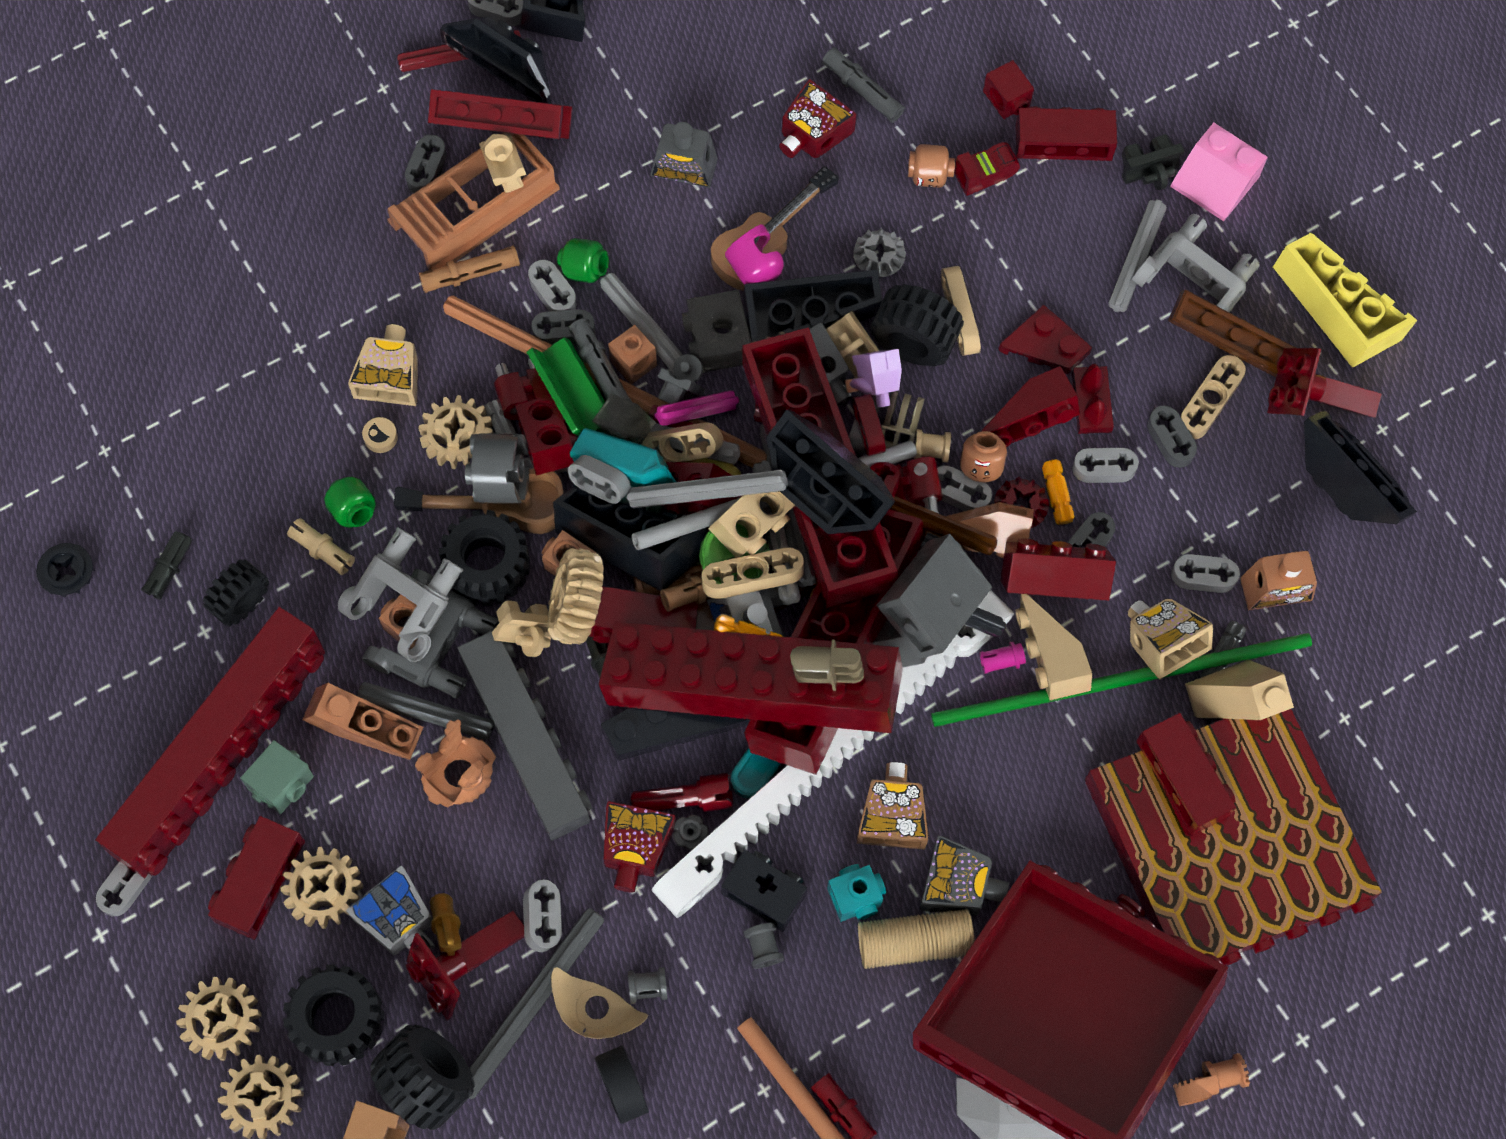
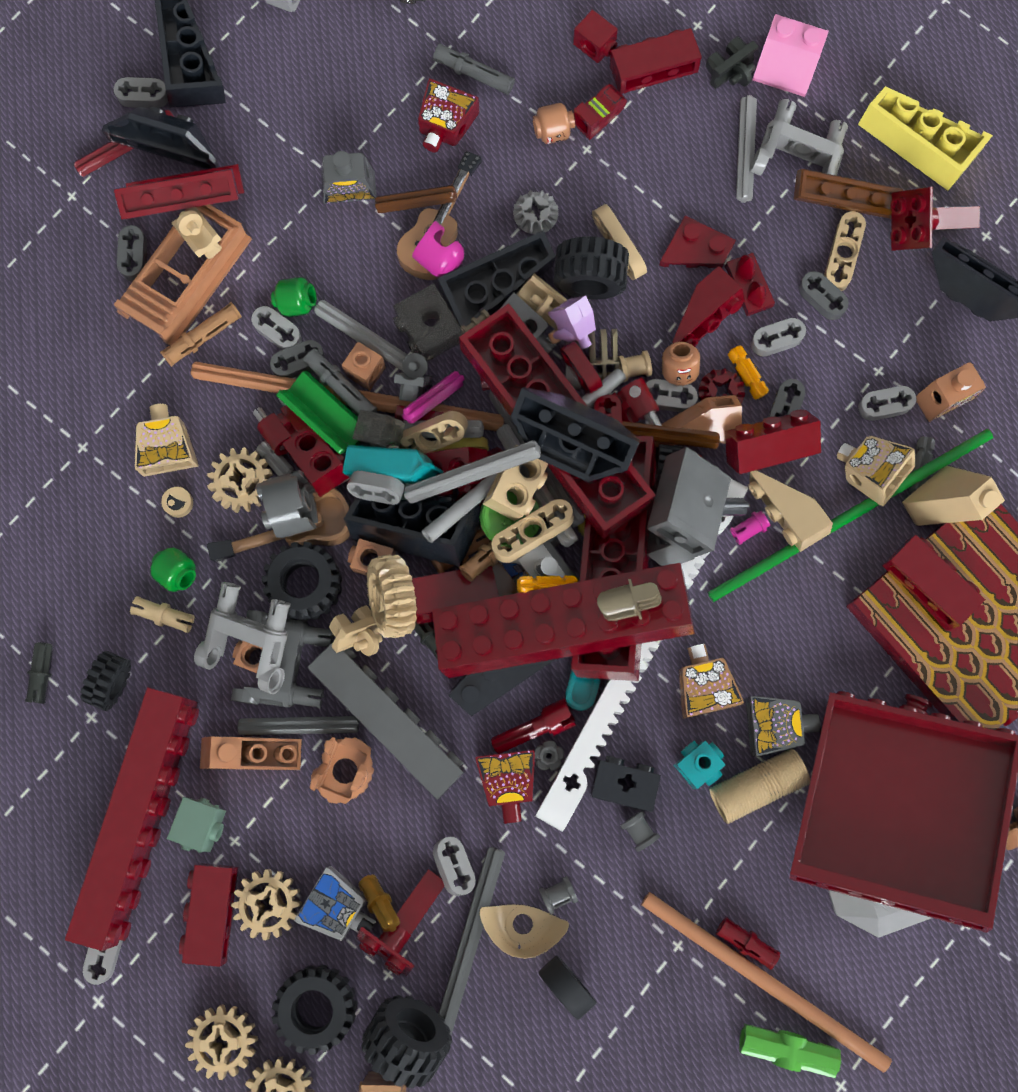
camera: 15 degrees left, 10 degrees up
(751, 199) = (416, 199): none -> reddish brown axle

